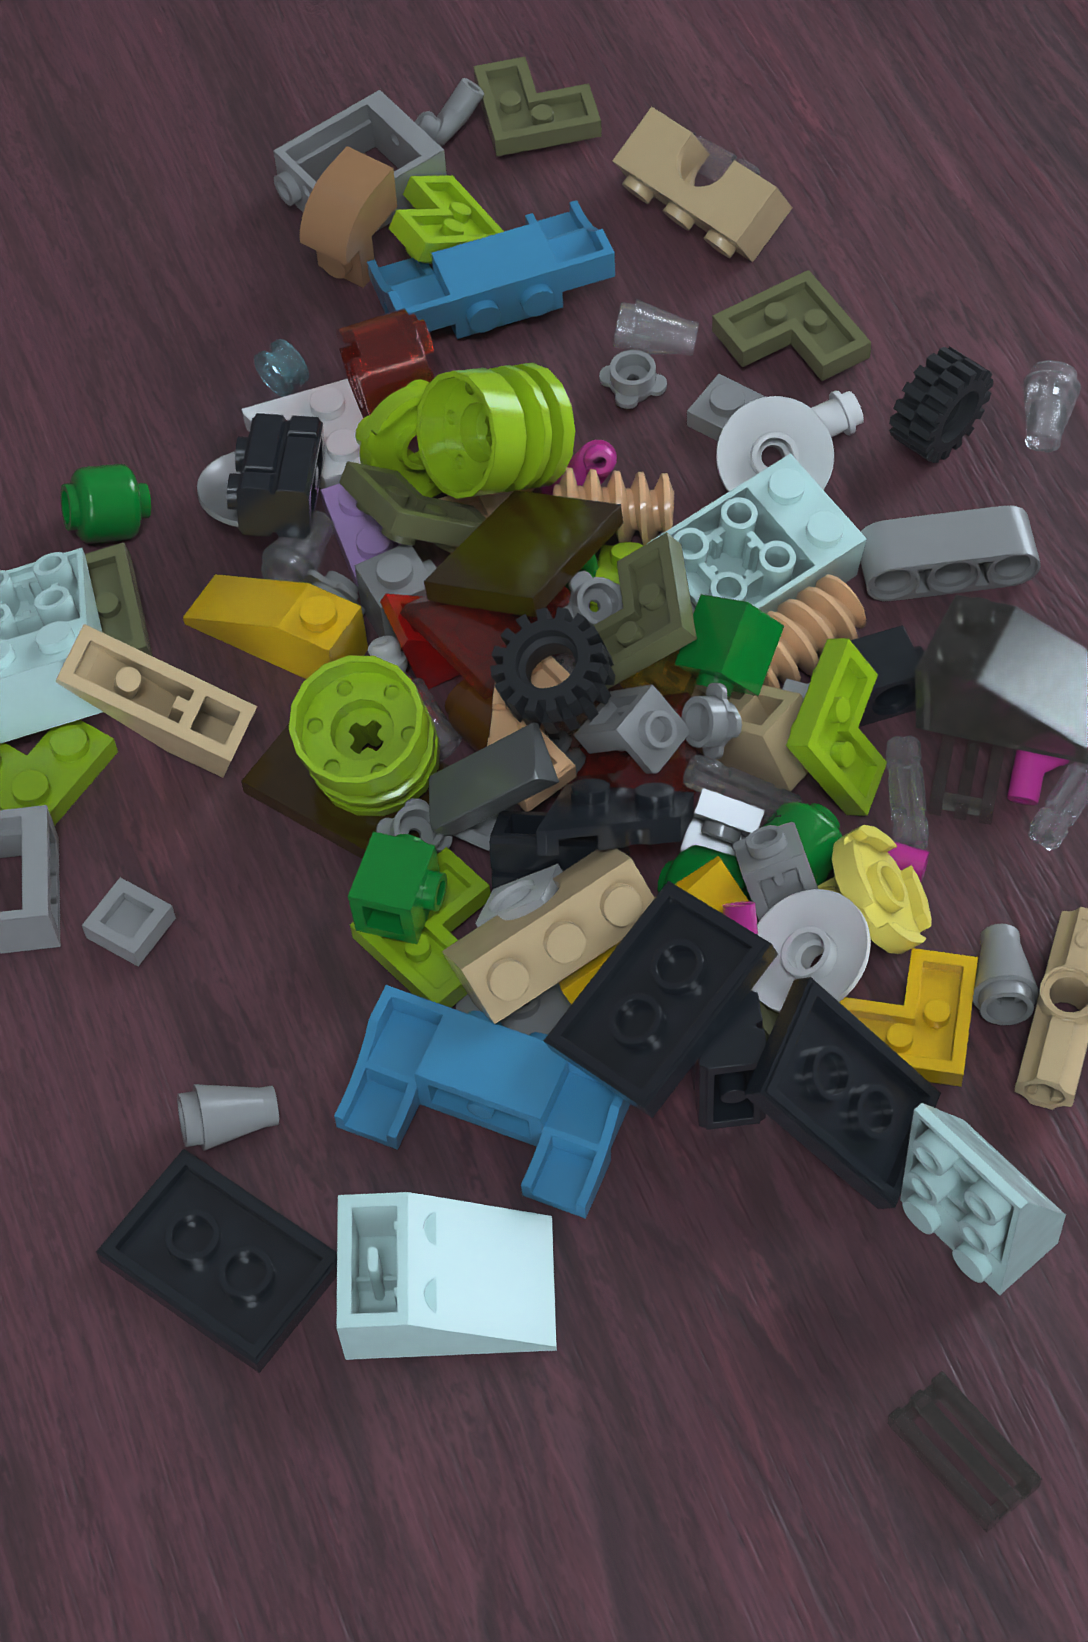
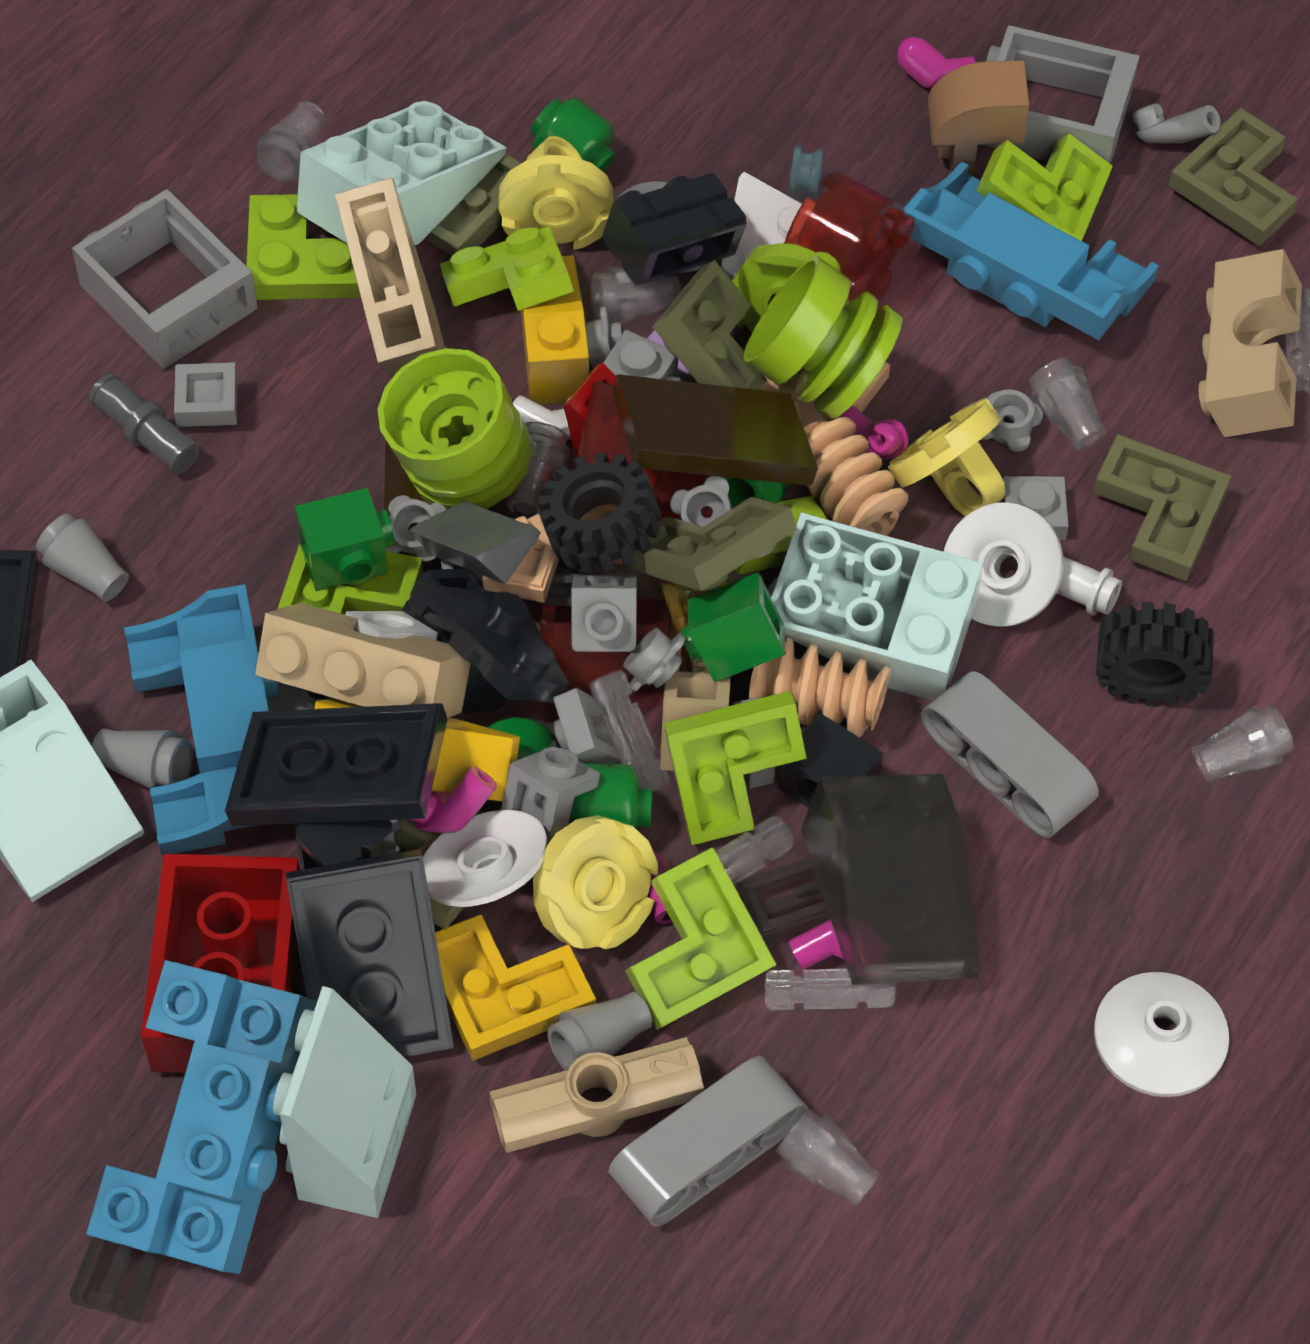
camera: 50 degrees right, 0 degrees up
(118, 987) = (144, 423): none -> dark grey pin
(166, 540) = (557, 192): none -> light yellow tile
(212, 602) = (524, 263): none -> lime plate
(247, 232) = (925, 62): none -> dark pink arm
(481, 1170) = (145, 756): none -> light grey cone
(647, 420) = (954, 455): none -> light yellow tile
(755, 1215) = (223, 919): none -> red brick
(933, 1290) = (222, 1126): none -> dark azure bracket
(988, 846) = (717, 943): none -> lime plate

